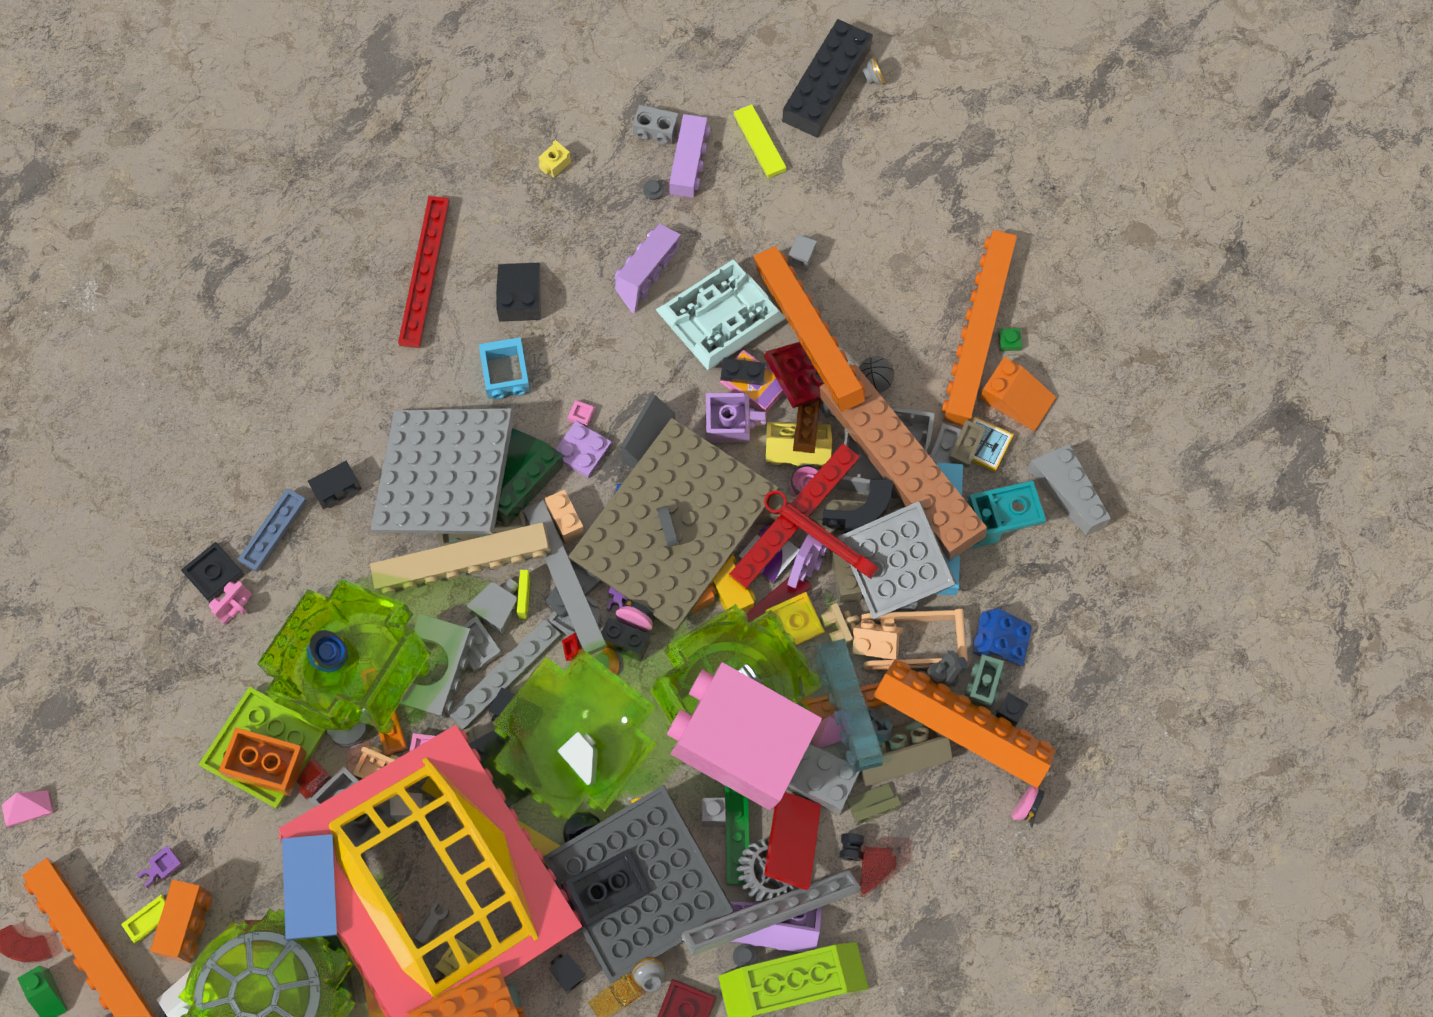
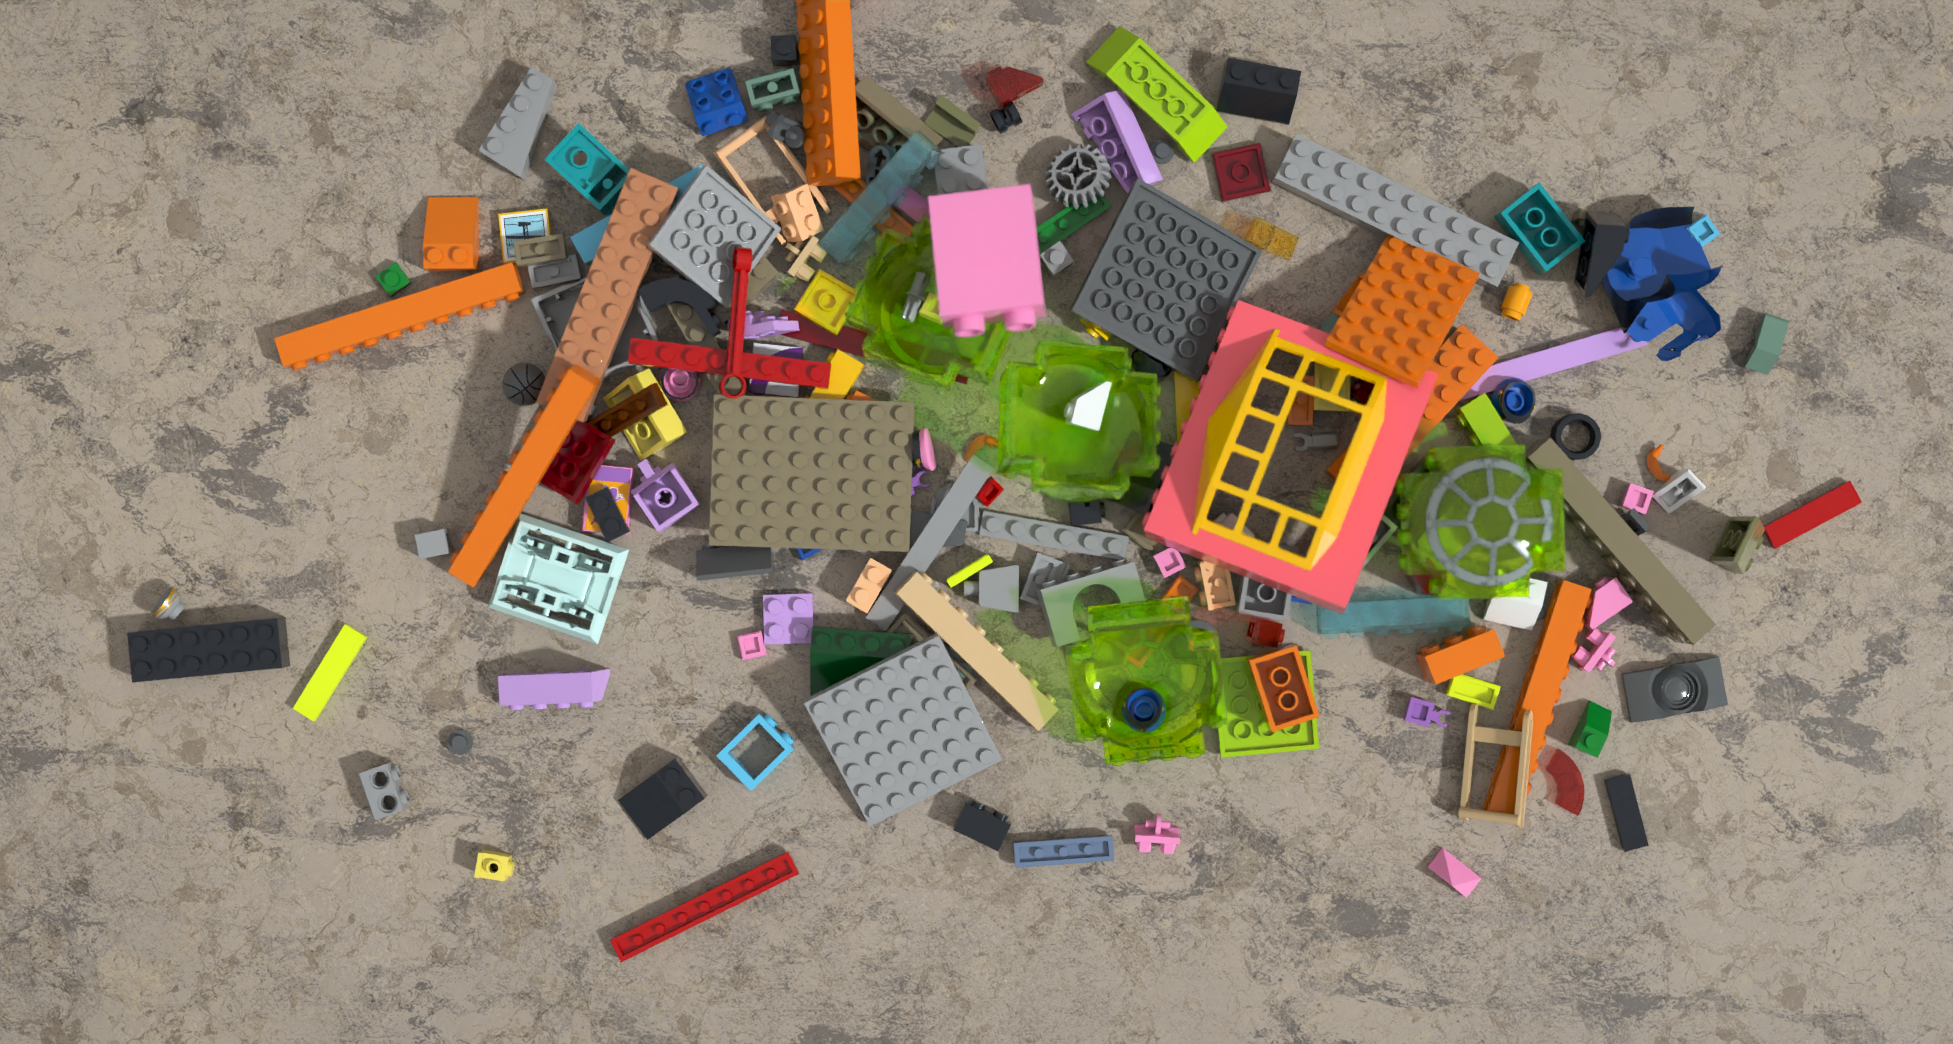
camera: 120 degrees left, 20 degrees up
(95, 911) = (1496, 736): none -> tan piece
(212, 571) = (1138, 877): black tile -> none
(253, 891) = (1394, 615): none -> clear light blue brick
(309, 887) = (1374, 544): medium blue tile -> none
(472, 936) = (1302, 407): none -> orange plate
(566, 972) = (1278, 294): black brick -> none
(605, 888) = (1192, 304): black slope -> none
(625, 639) = (950, 446): black brick -> none
(648, 974) = (1234, 221): light grey piece -> none
(667, 526) = (823, 472): dark grey beam -> none
(688, 156) = (398, 731): lavender brick -> none
(770, 912) = (1114, 146): light grey tile -> none
(793, 841) = (1042, 165): red tile -> none

